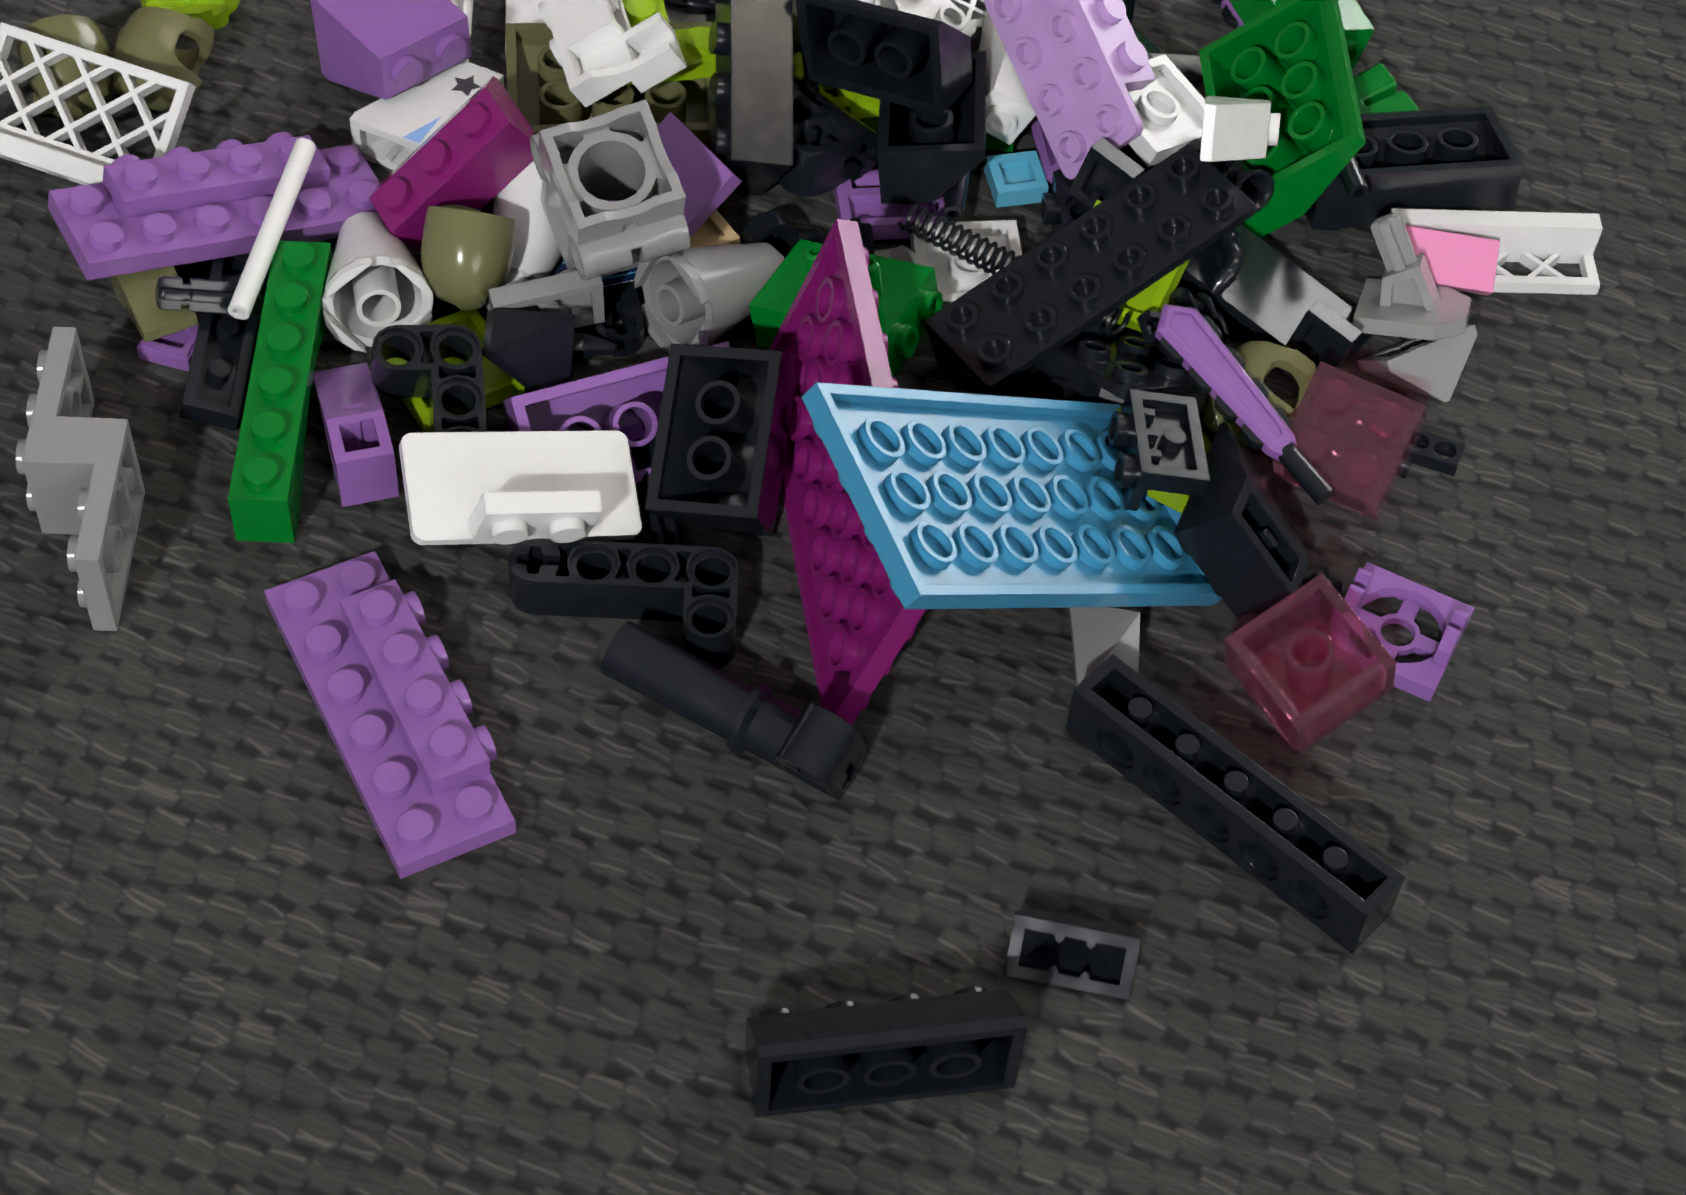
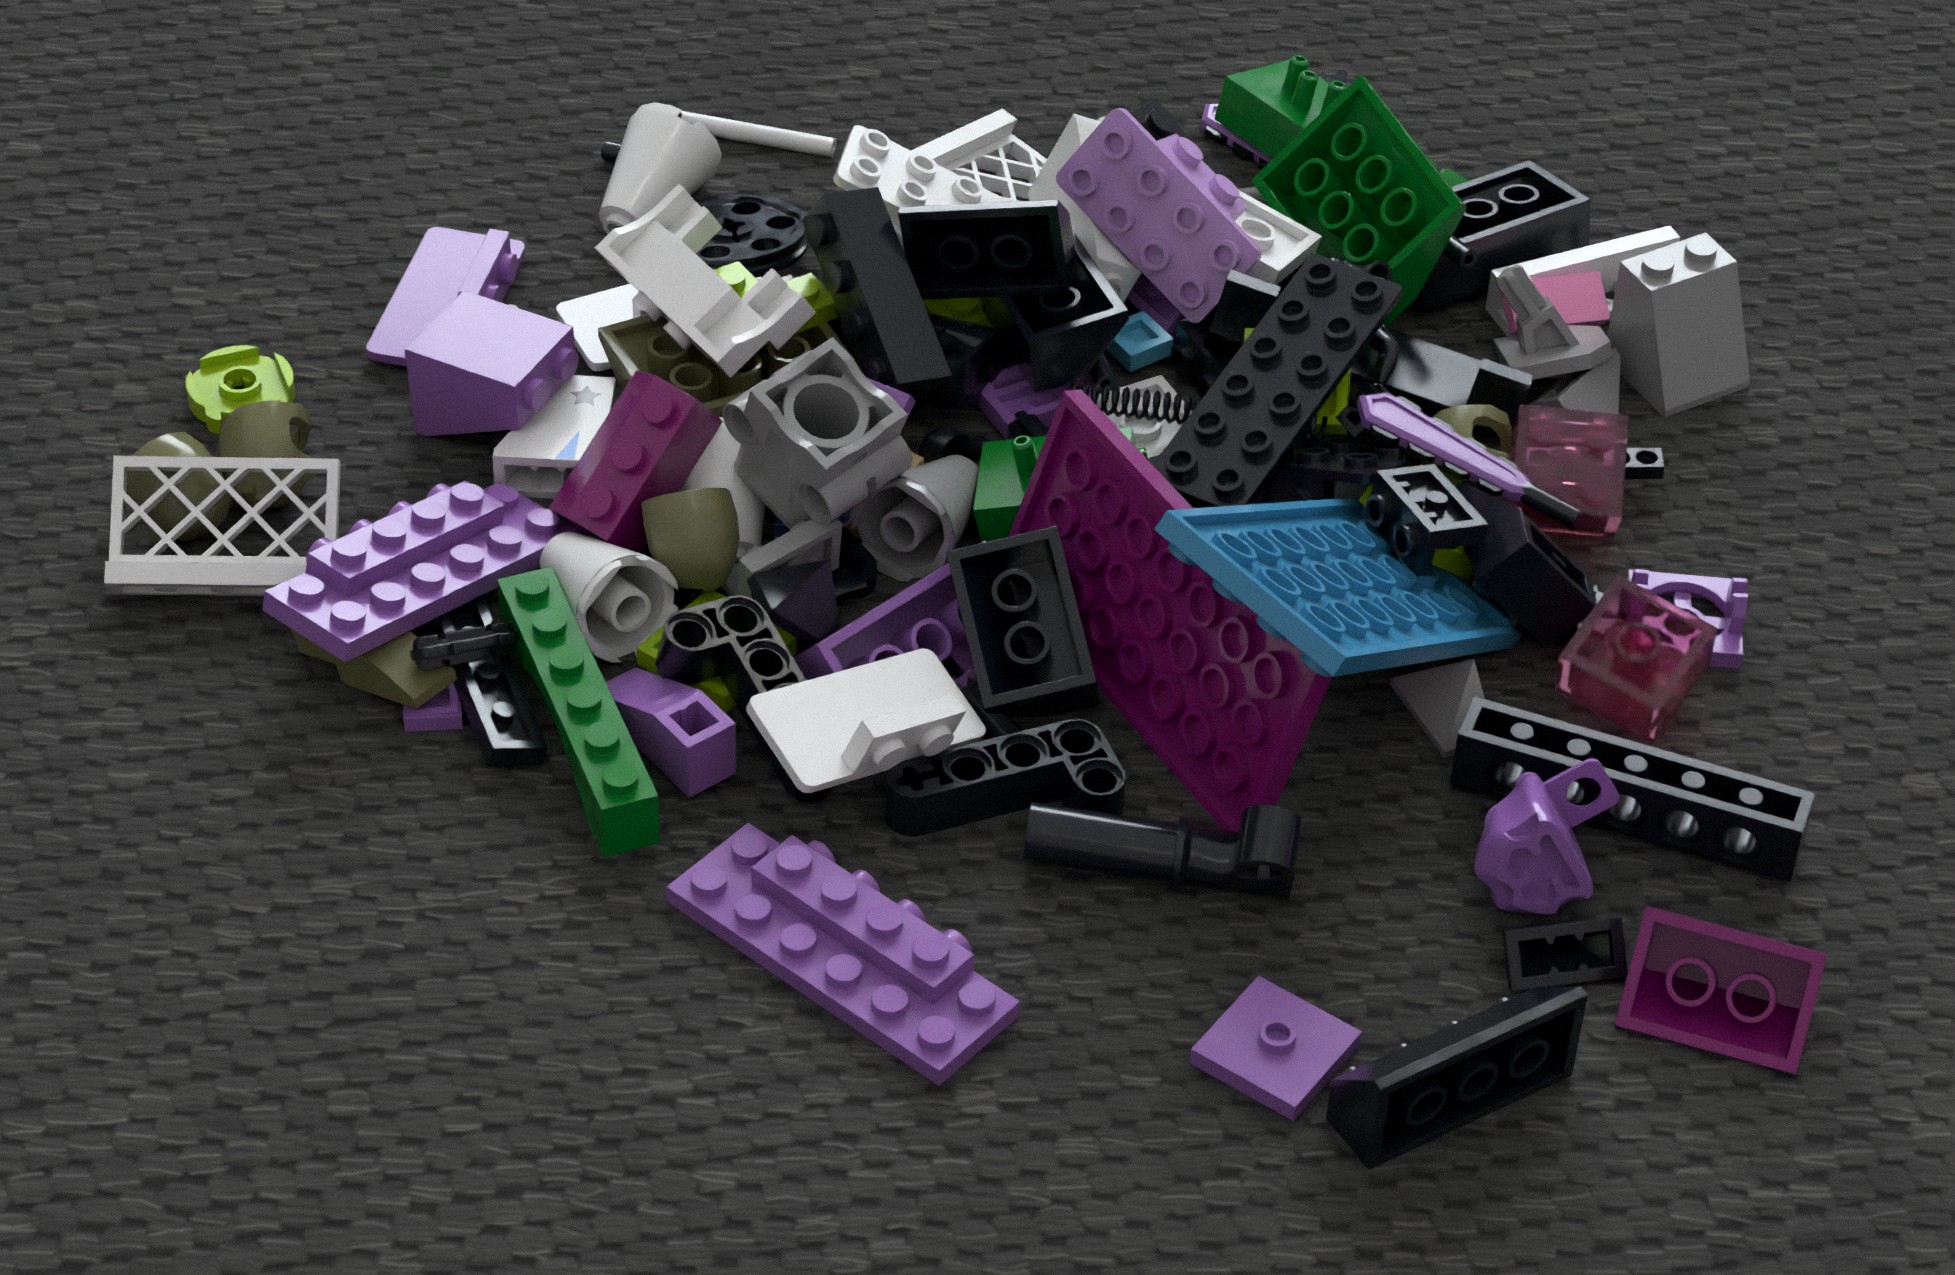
camera: 20 degrees left, 10 degrees down
(82, 477) = (446, 836): light grey bracket -> none
(271, 229) = (493, 568): white piece -> none
(734, 955) = (1275, 1048): none -> medium lavender plate
(1101, 829) = (1530, 845): none -> medium lavender piece
(1209, 1051) = (1721, 989): none -> magenta slope
(1237, 129) = (1342, 228): white slope -> none
(1550, 322) = (1680, 325): none -> light grey slope

